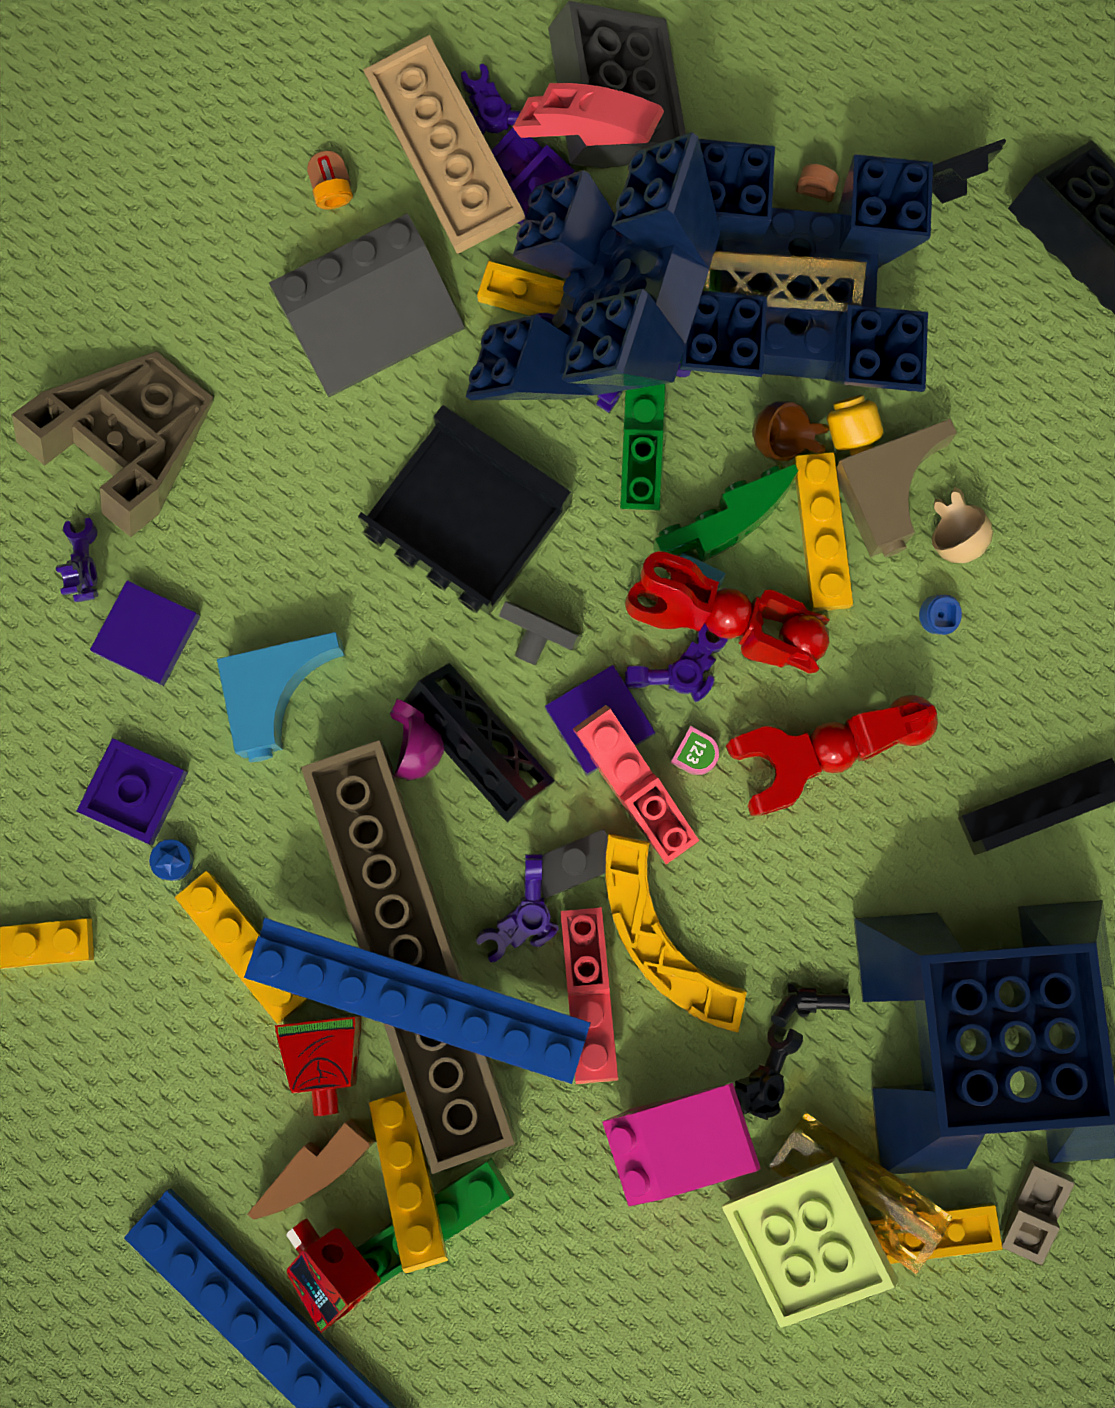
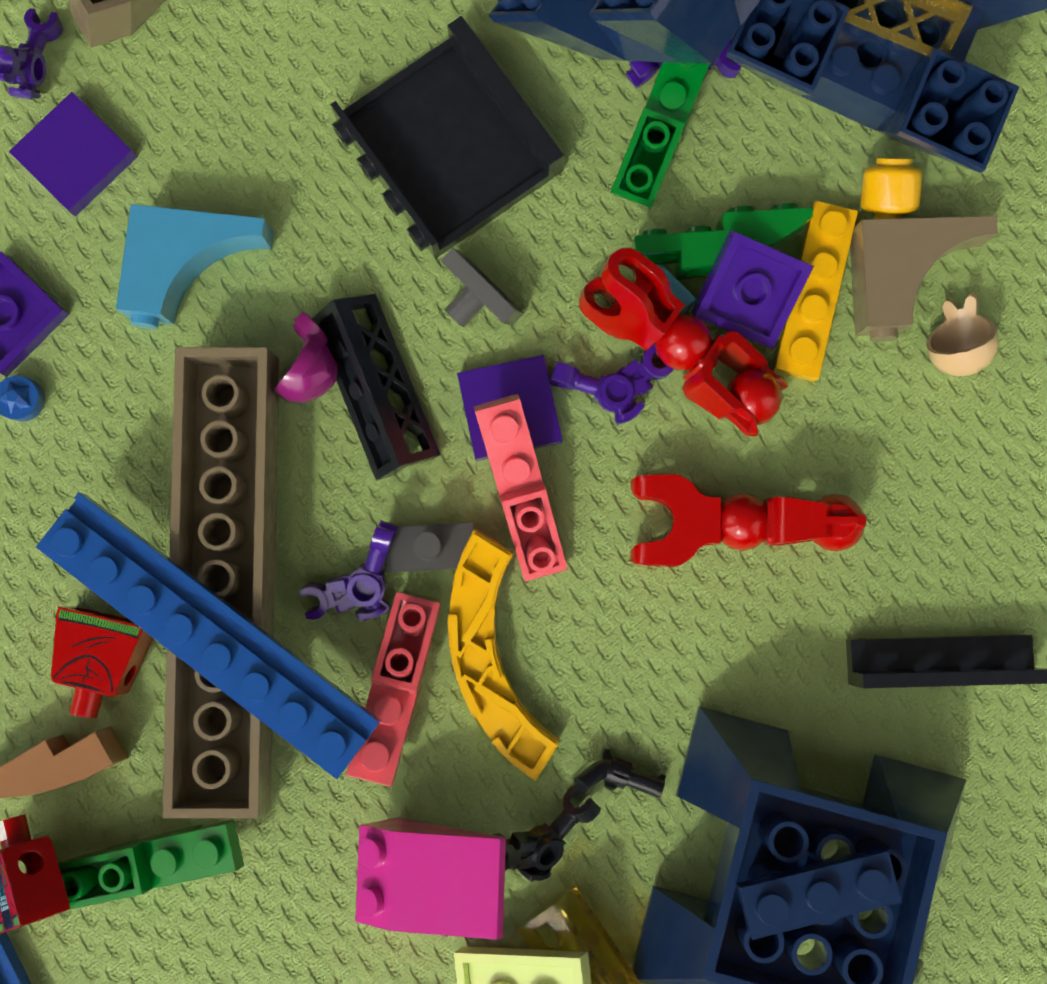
camera: 15 degrees right, 5 degrees up
(234, 939) = (50, 489): yellow plate -> none
(407, 1184) = (134, 822): yellow plate -> none
(696, 753) = (597, 477): tile -> none
(769, 549) = (751, 289): none -> dark purple tile
(785, 431) = (815, 169): reddish brown piece -> none
(940, 614) = (907, 421): blue tile -> none
(1008, 1029) = (818, 892): none -> dark blue plate

